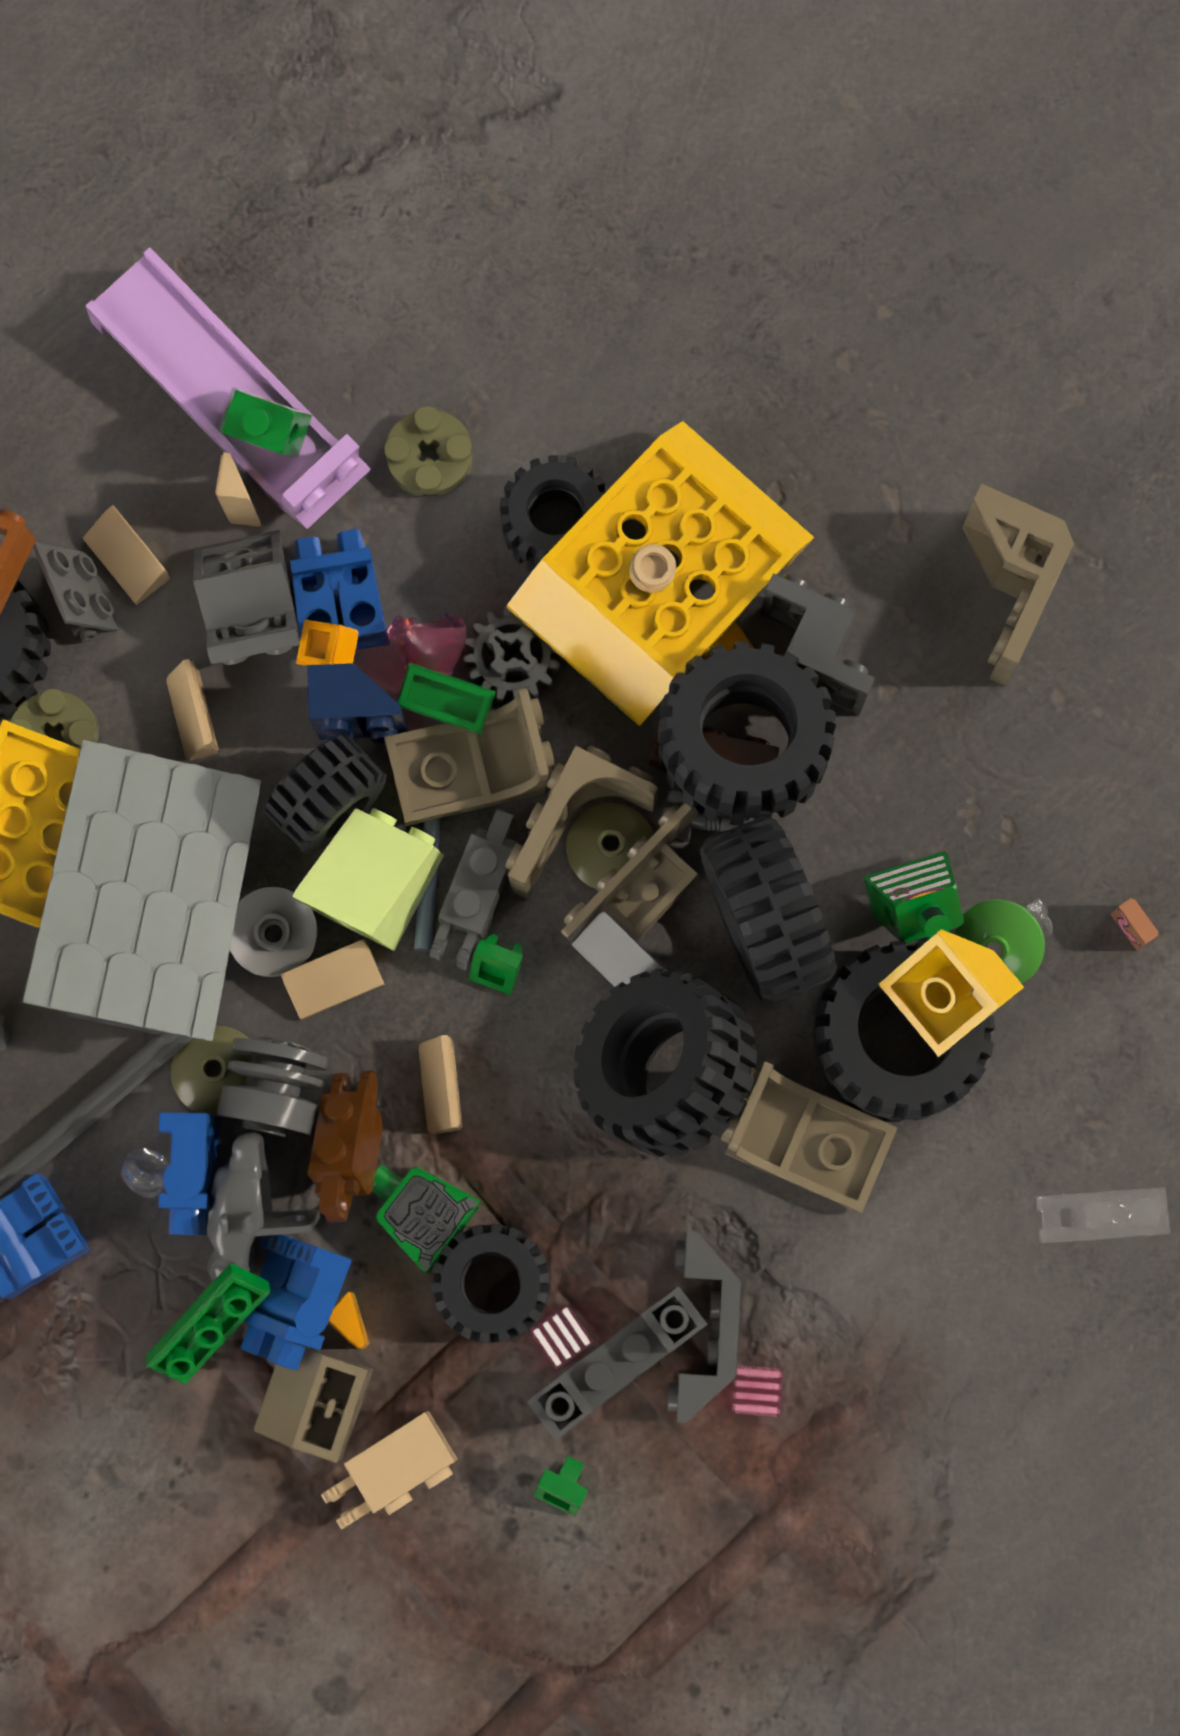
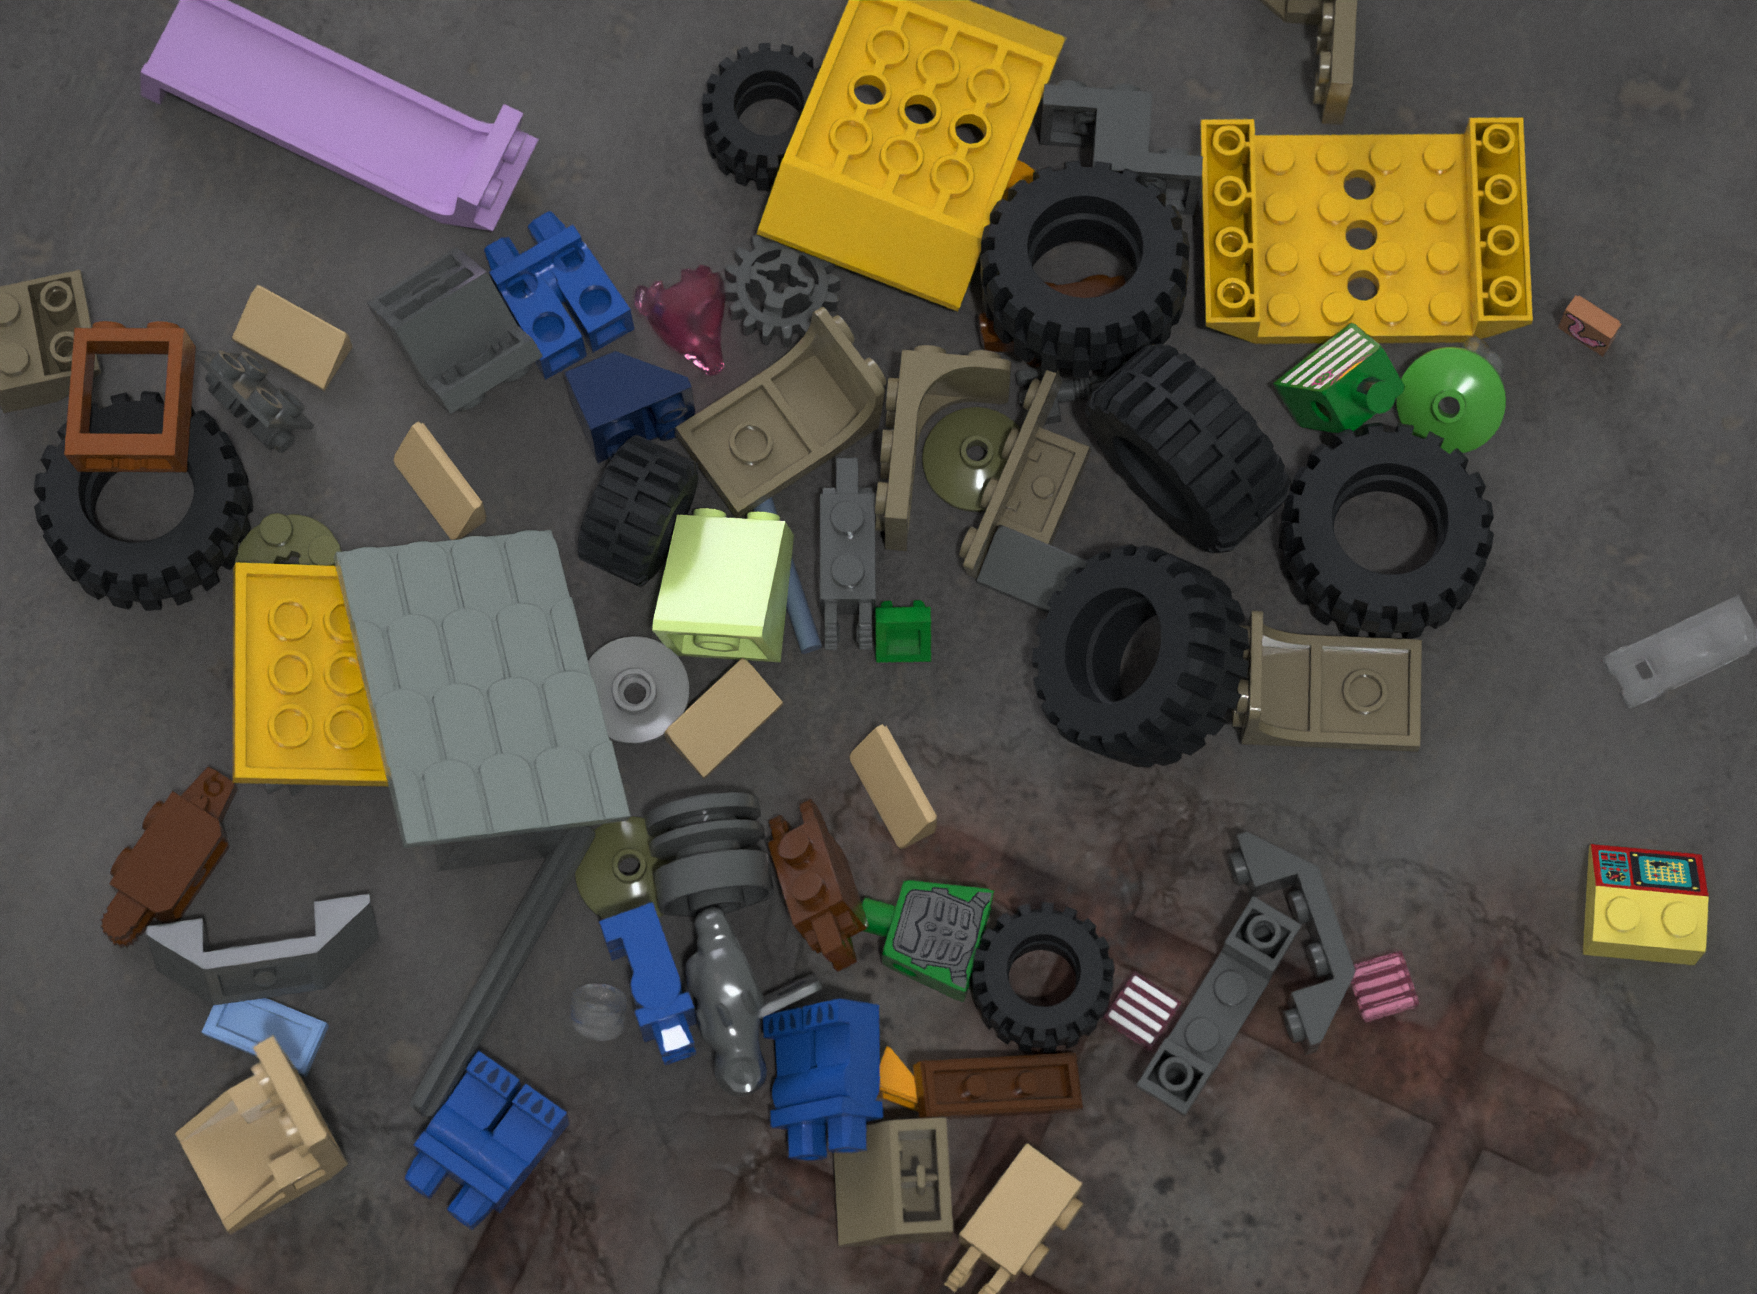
camera: 25 degrees left, 5 degrees down
(208, 1323) = (742, 1141): green tile -> none
(233, 494) = (400, 221): tan slope -> none
(264, 423) = (394, 128): green torso -> none
(326, 644) = (568, 346): light orange slope -> none
(422, 1356) = (998, 1086): none -> reddish brown tile
(430, 477) = (606, 126): olive plate -> none
(445, 698) = (730, 357): green tile -> none
(562, 1489) = (1212, 1172): green tile -> none
(652, 568) = (909, 127): tan tile -> none
(949, 988) = (1420, 455): yellow slope -> none
(991, 1407) = (1645, 905): none -> light yellow slope
(1051, 793) = (1442, 220): none -> yellow slope

